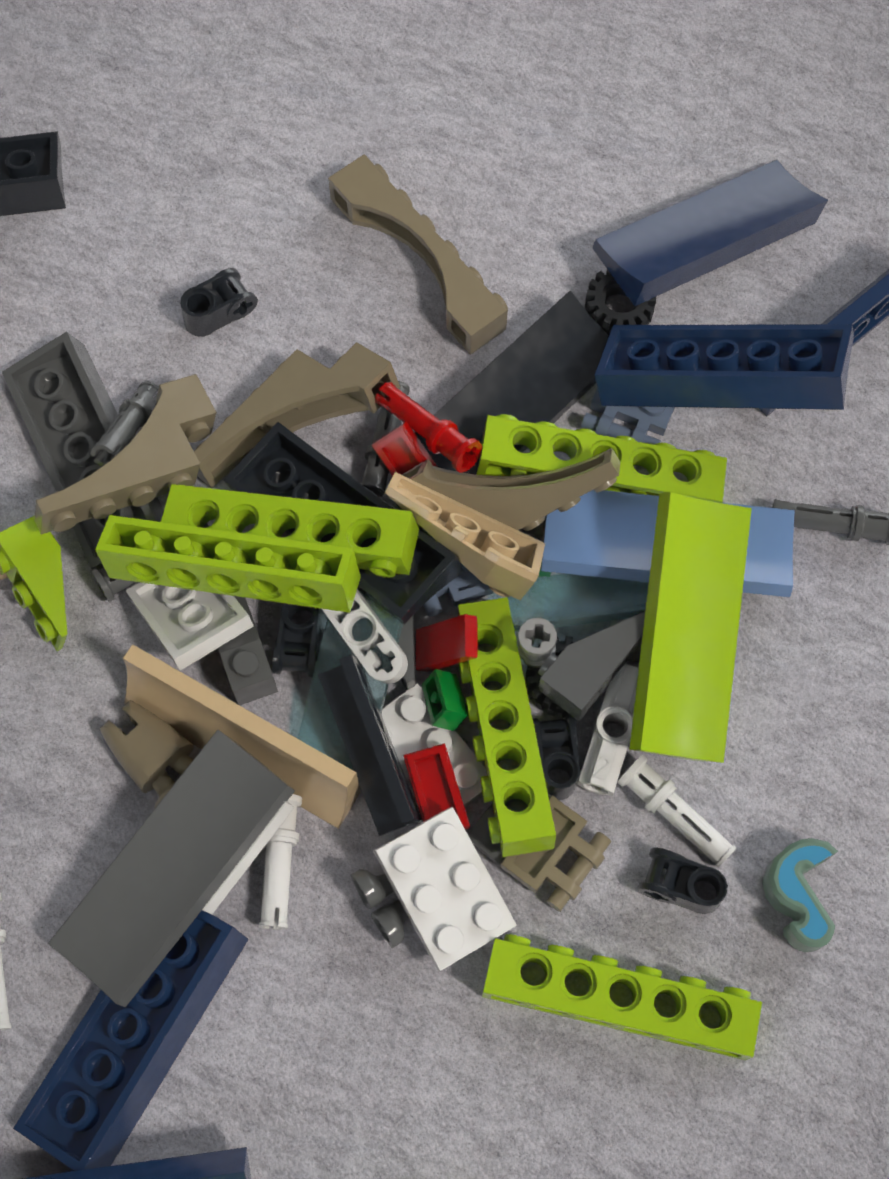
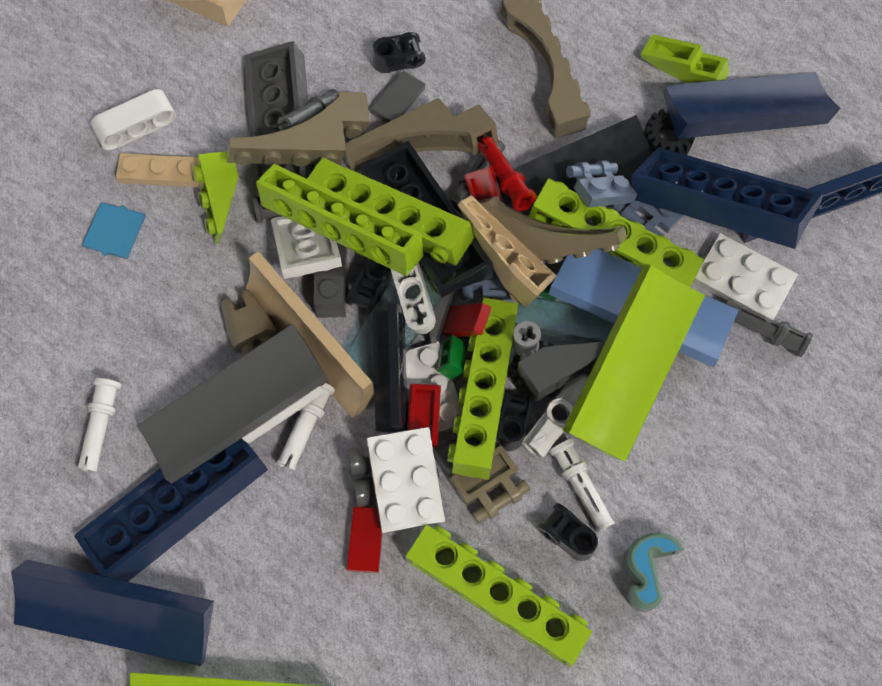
camera: 20 degrees right, 0 degrees up
(238, 365) = (398, 97): none -> dark grey tile
(418, 989) = (365, 541): none -> red tile
(566, 404) = (605, 188): none -> sand blue plate
(604, 196) = (684, 60): none -> lime slope
(785, 462) = (745, 277): none -> white plate

